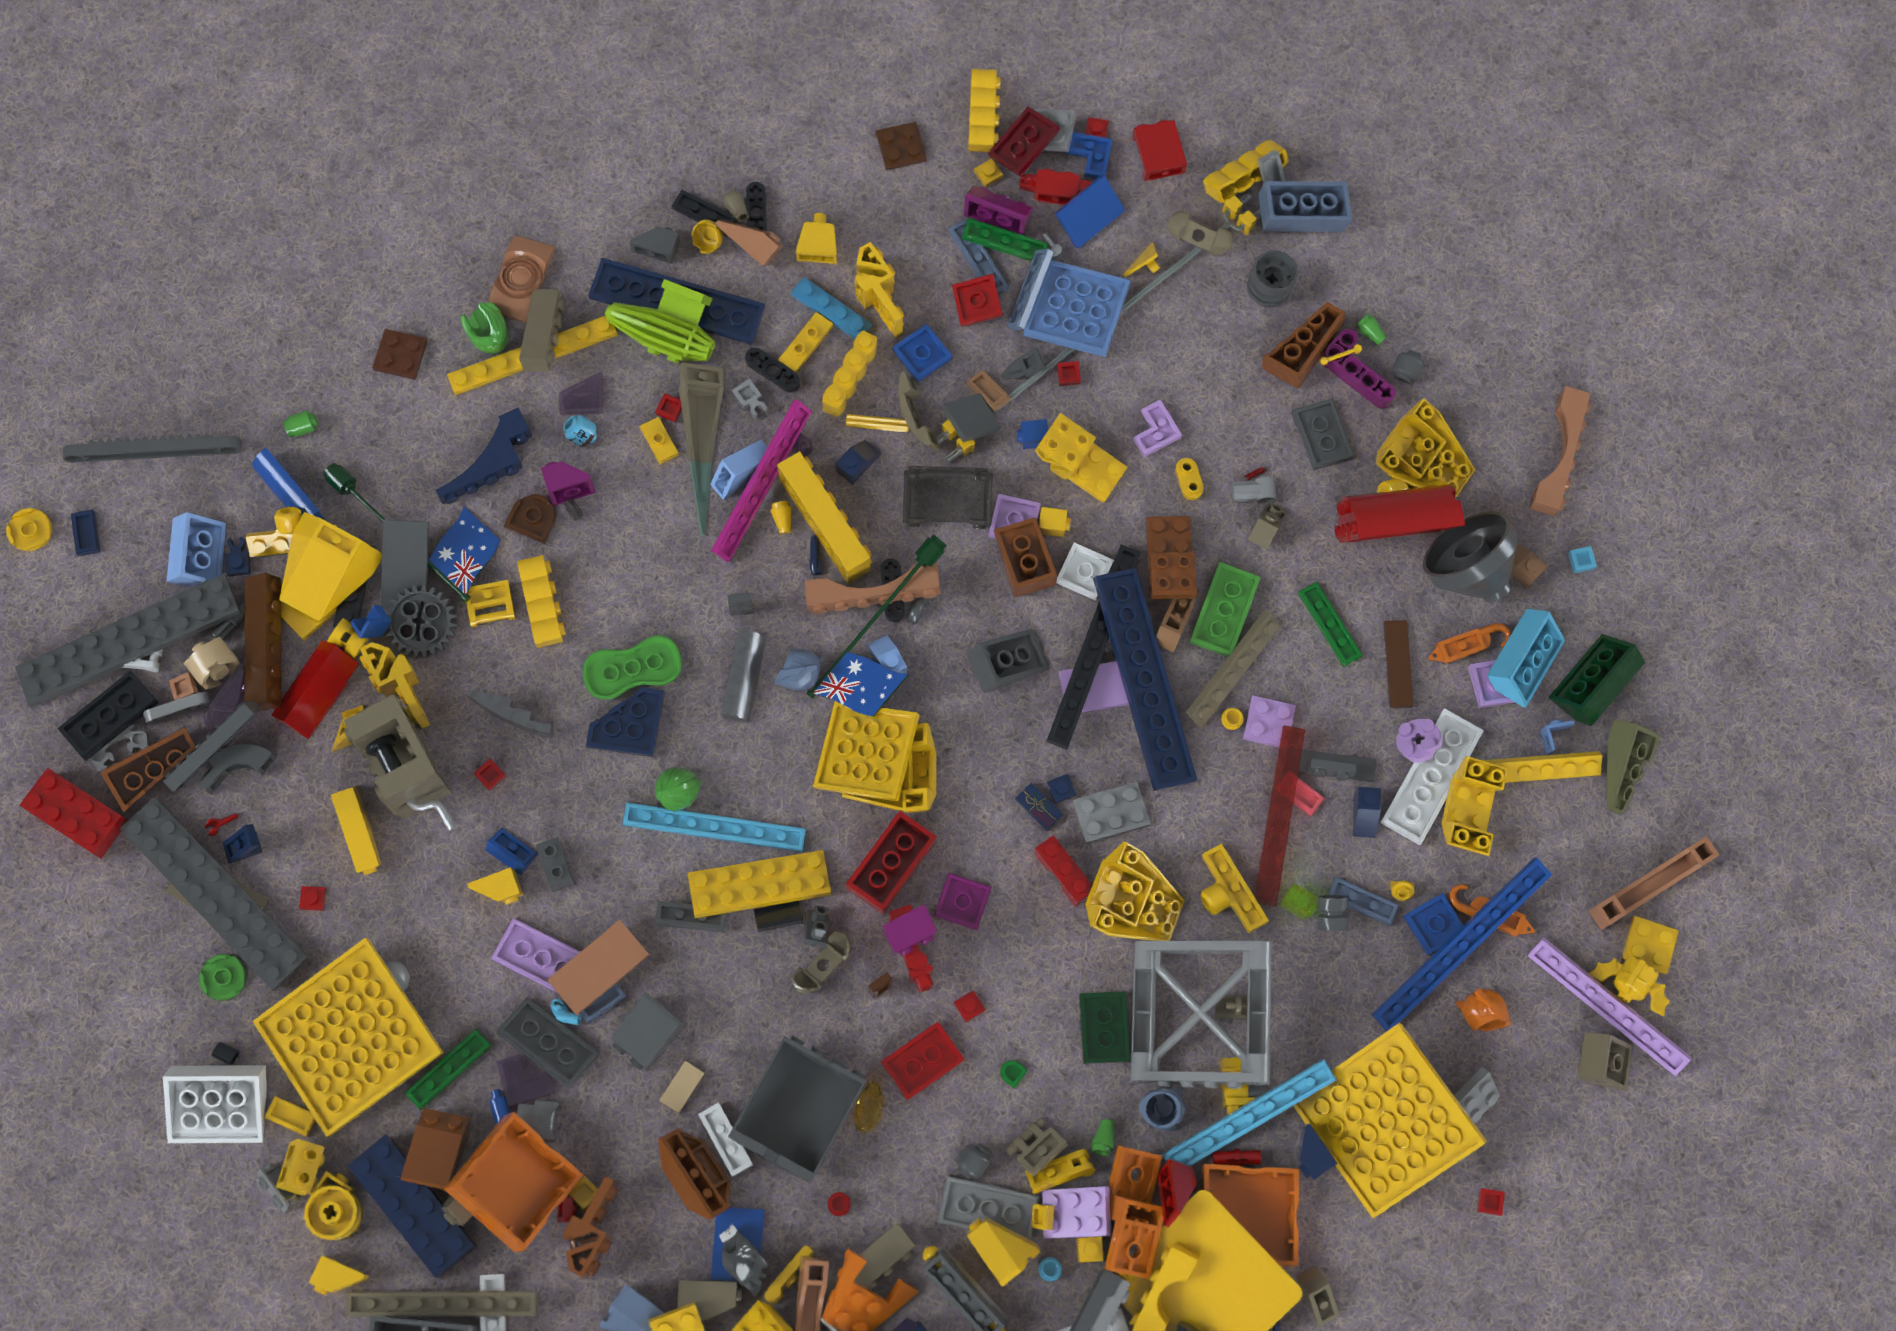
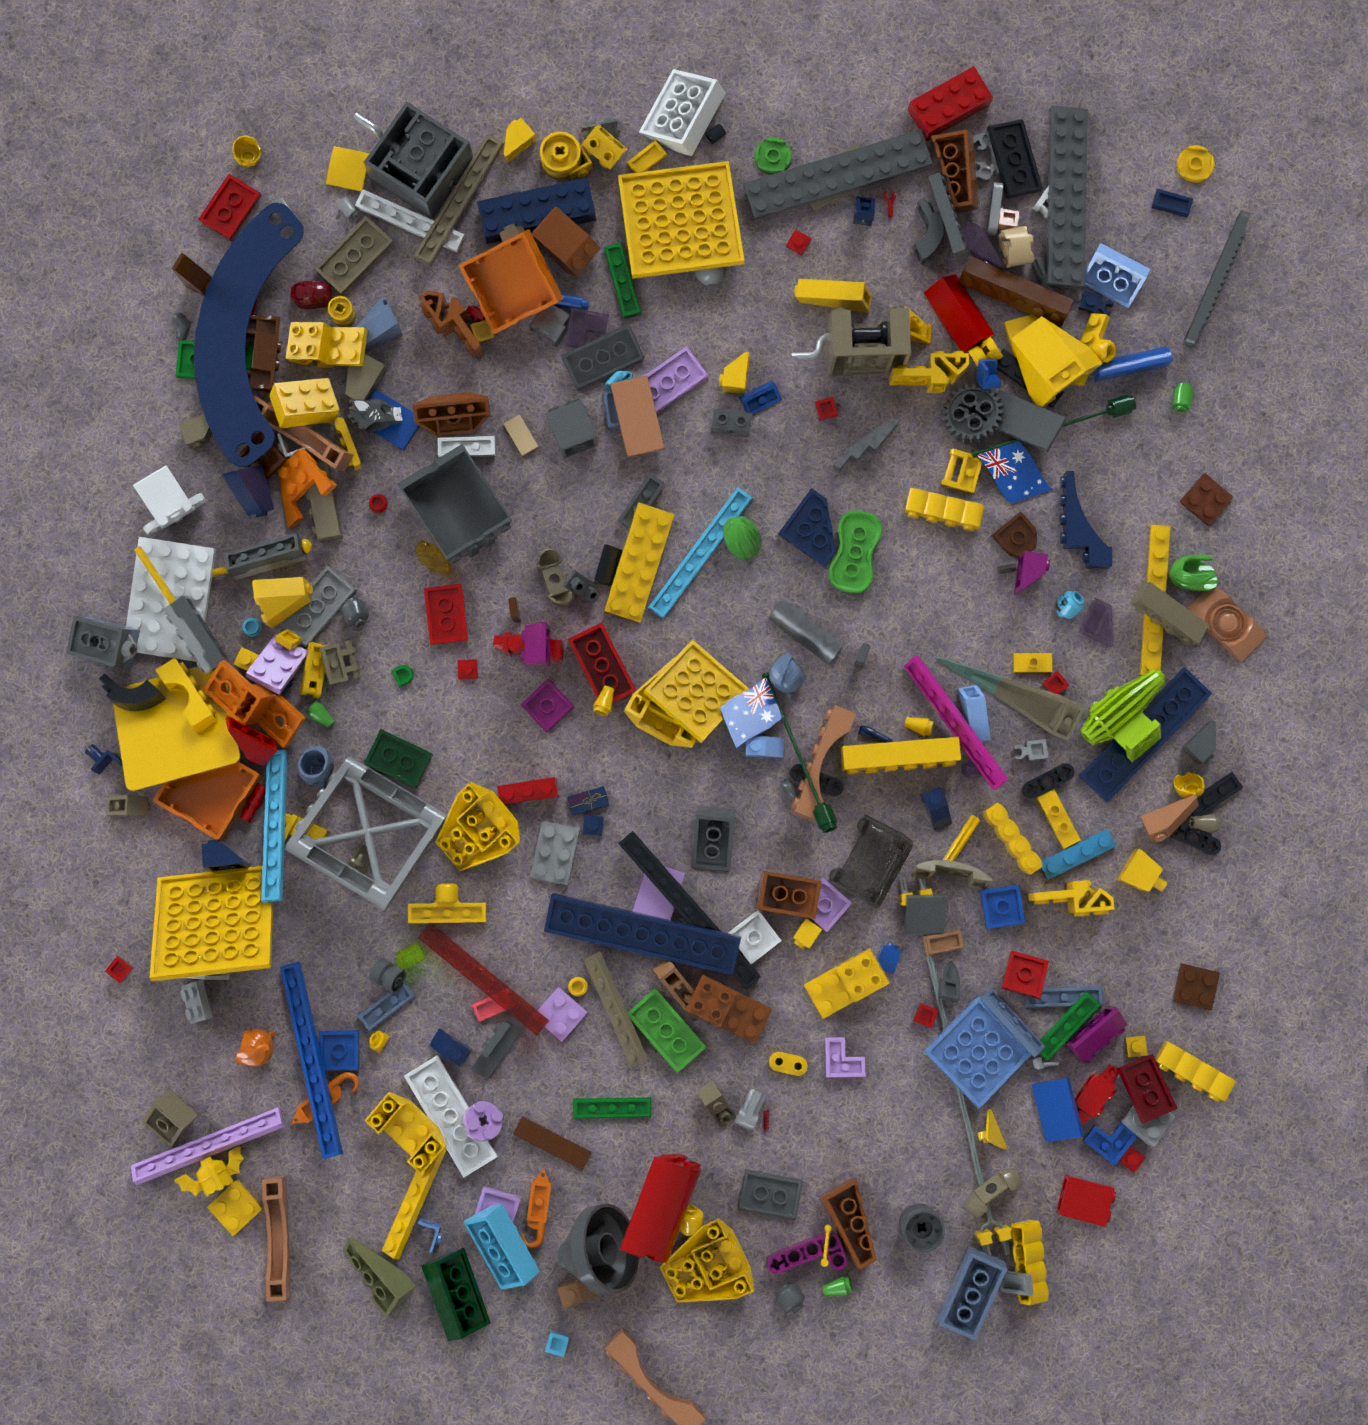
camera: 120 degrees right, 10 degrees up
(930, 834) = (604, 701): none -> yellow cone

